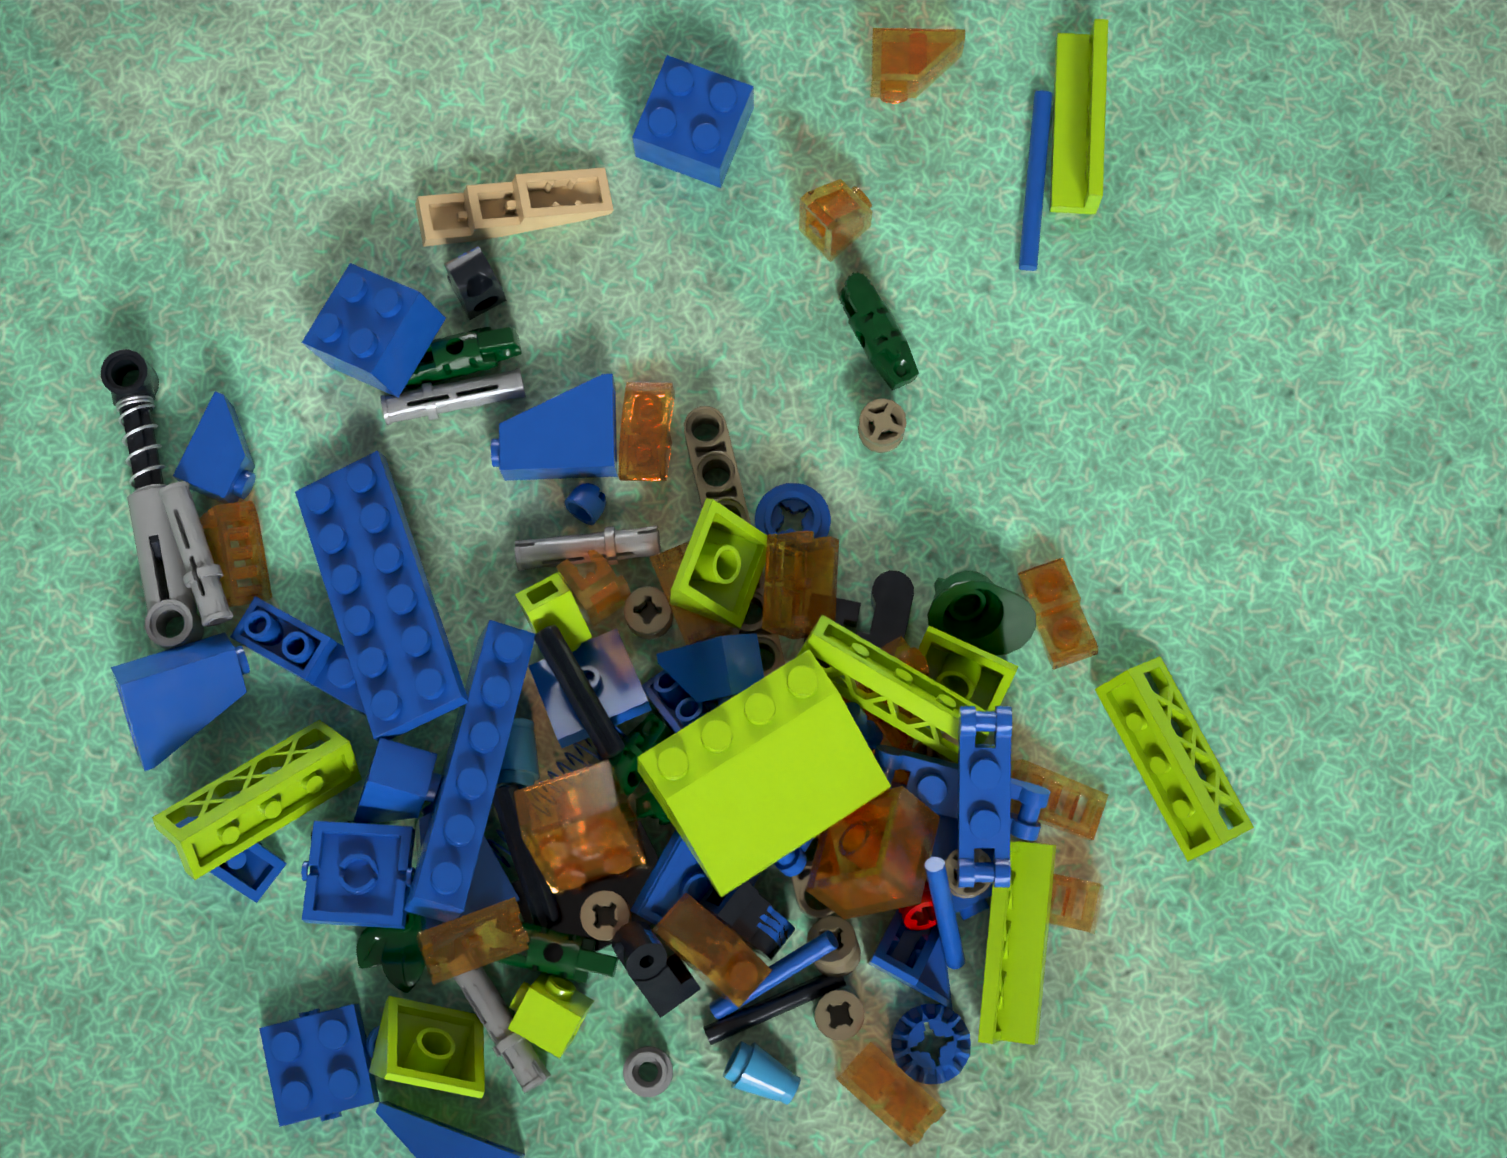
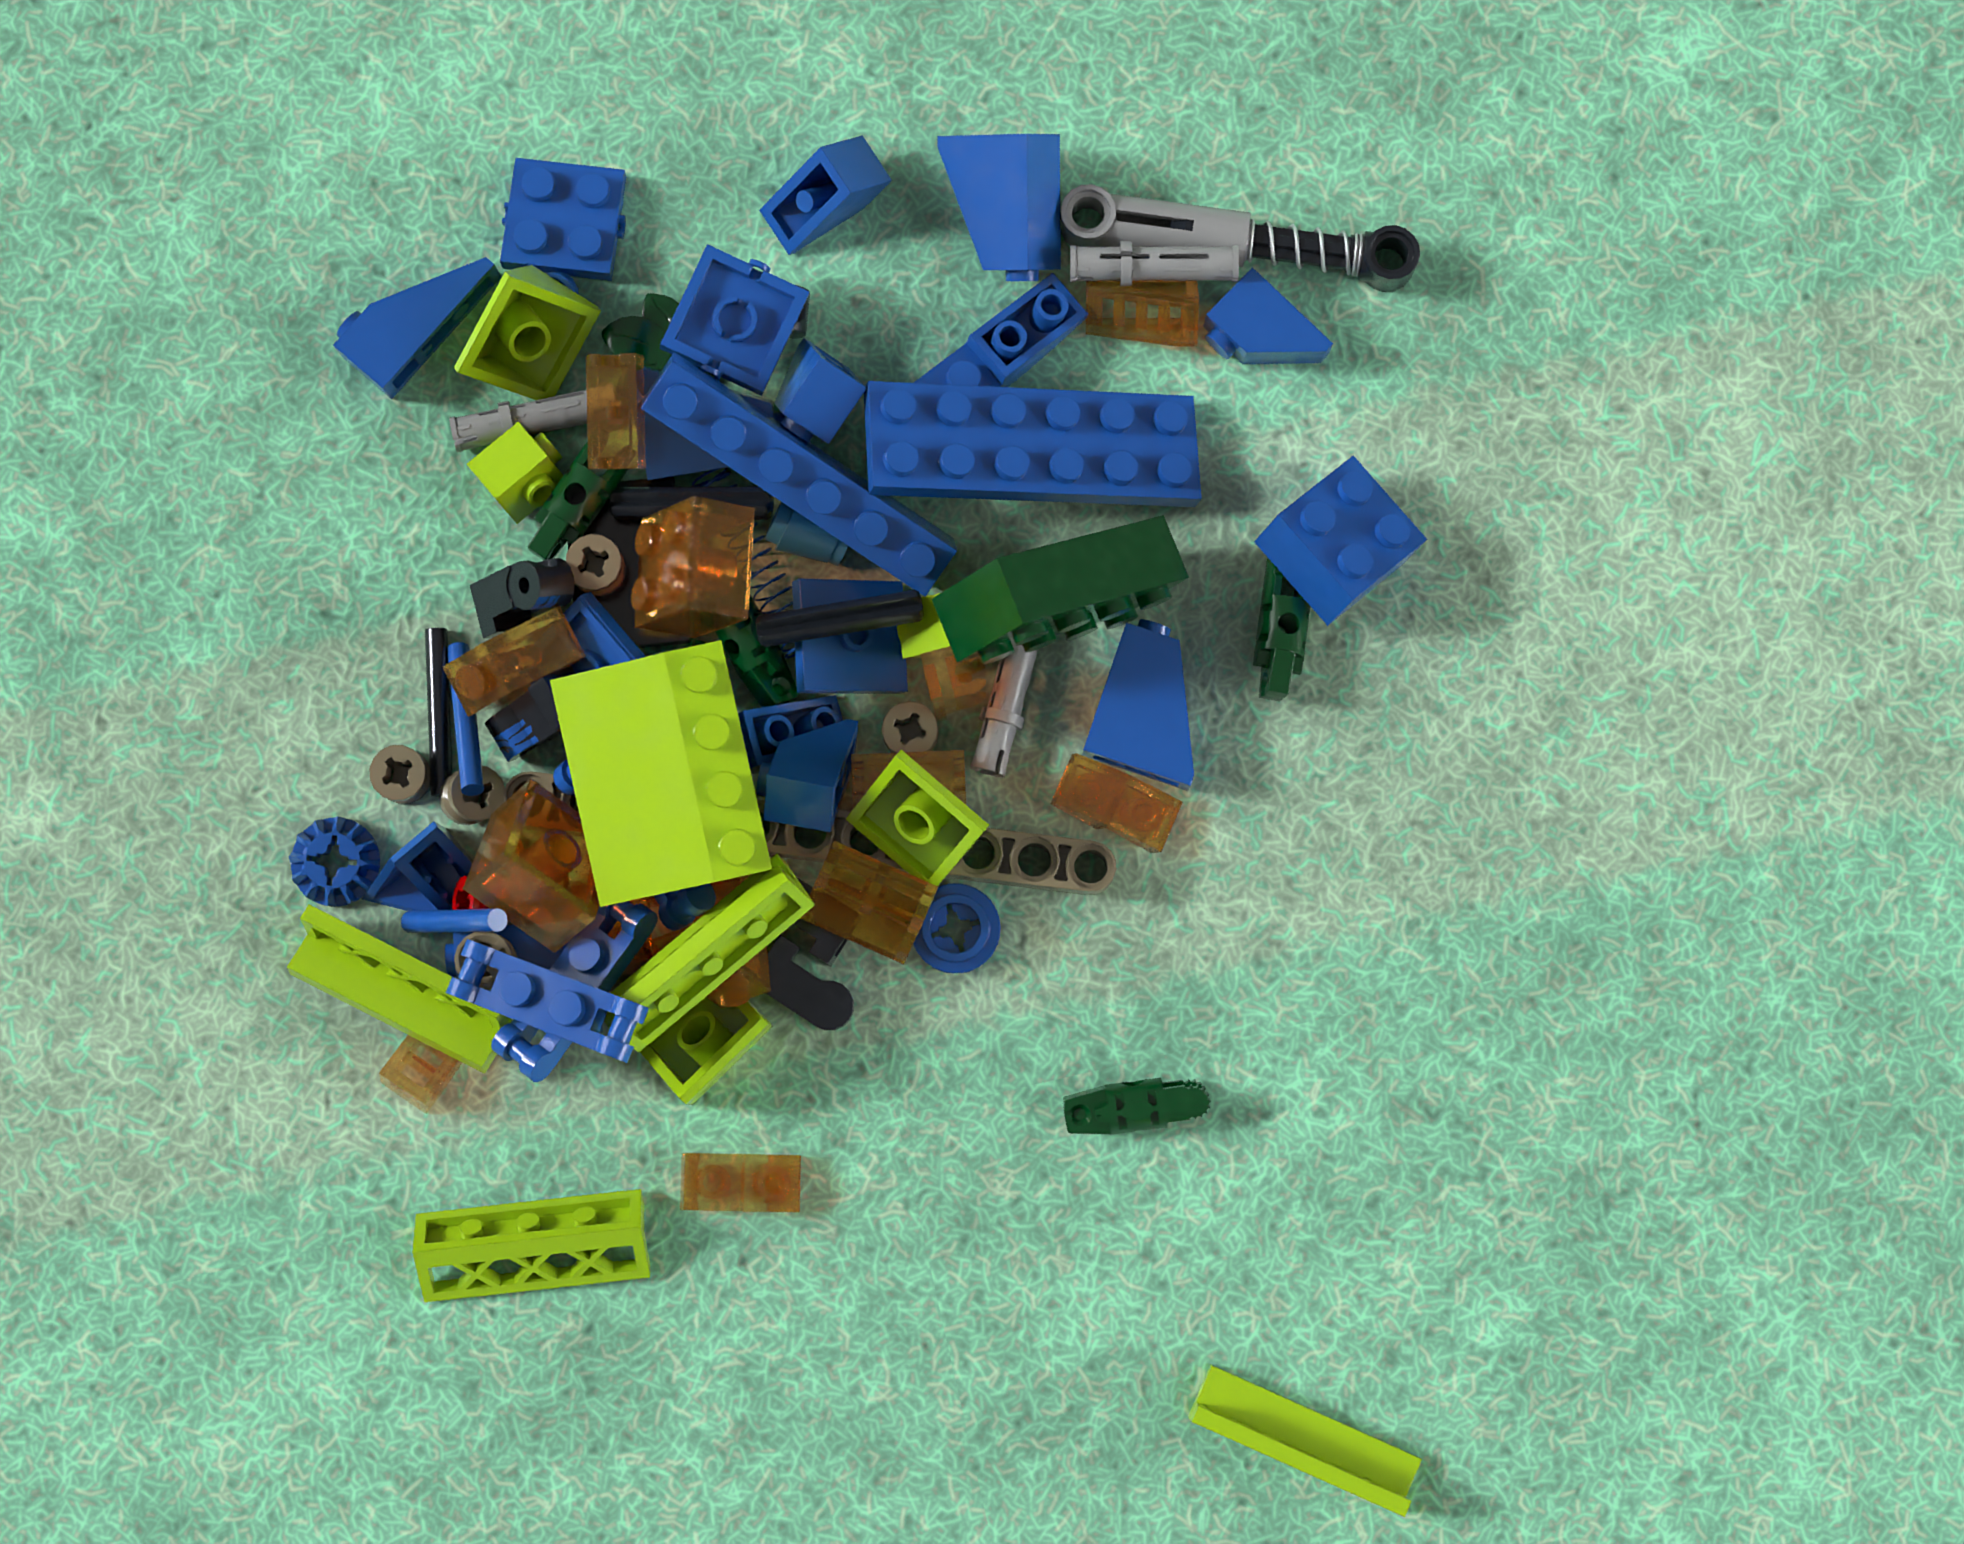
camera: 110 degrees right, 5 degrees up
(265, 800) = (853, 250): lime fence -> none
(397, 409) = (1231, 668): light grey pin -> none
(473, 282) = (1357, 672): black leg -> none
(496, 517) = (1060, 590): none -> dark green brick
(514, 207) = (1438, 751): tan slope -> none
(586, 503) = (1061, 709): blue hinge -> none
(636, 1083) = (410, 542): light grey plate -> none
(693, 121) = (1463, 990): blue brick -> none
(761, 1074) = (374, 668): dark azure cone -> none
(834, 217) = (1287, 1110): clear orange slope -> none
(885, 416) = (1030, 1063): dark tan wheel -> none
(891, 1094) = (299, 799): clear orange hinge -> none
(911, 60) = (1447, 1269): clear orange slope -> none
(981, 613) = (769, 1089): dark green piece -> none
(1035, 181) = (1253, 1362): blue bar -> none
(1092, 813) = (576, 1062): clear orange slope -> none

